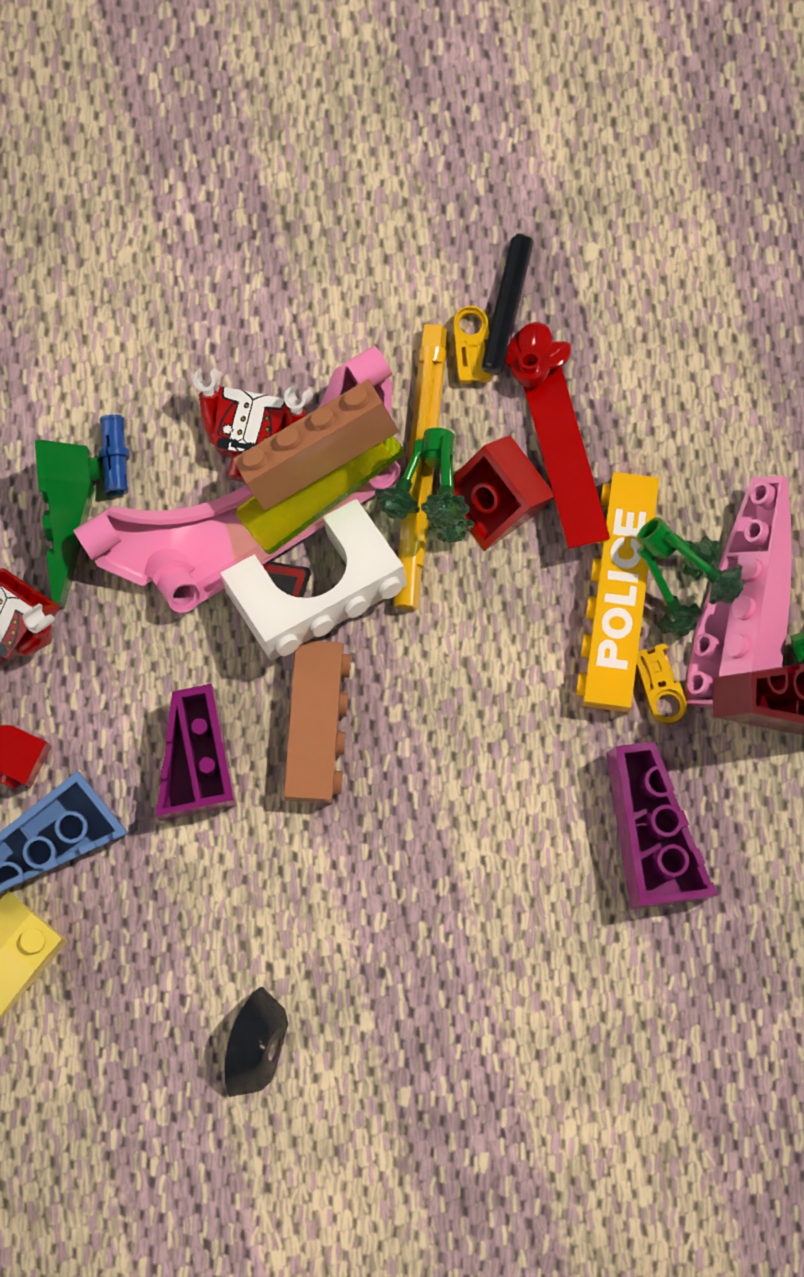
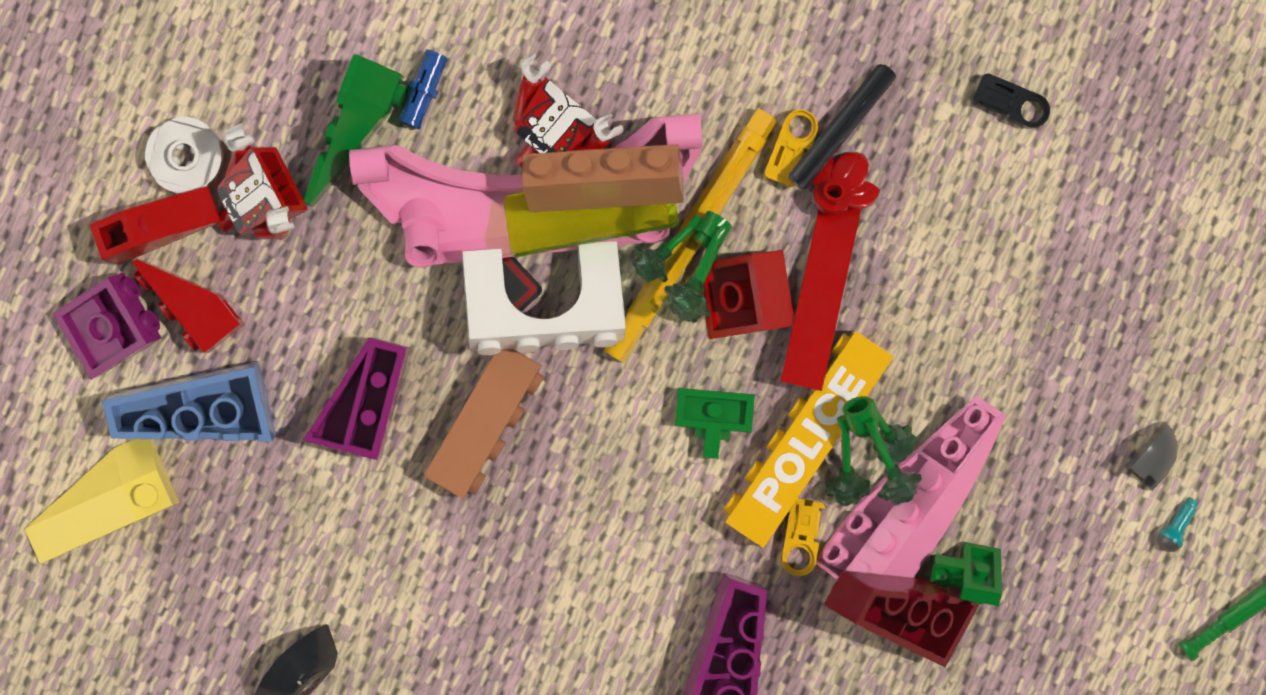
camera: 25 degrees right, 10 degrees up
(524, 614) = (714, 415): none -> green hinge
(642, 212) = (1008, 99): none -> black piece

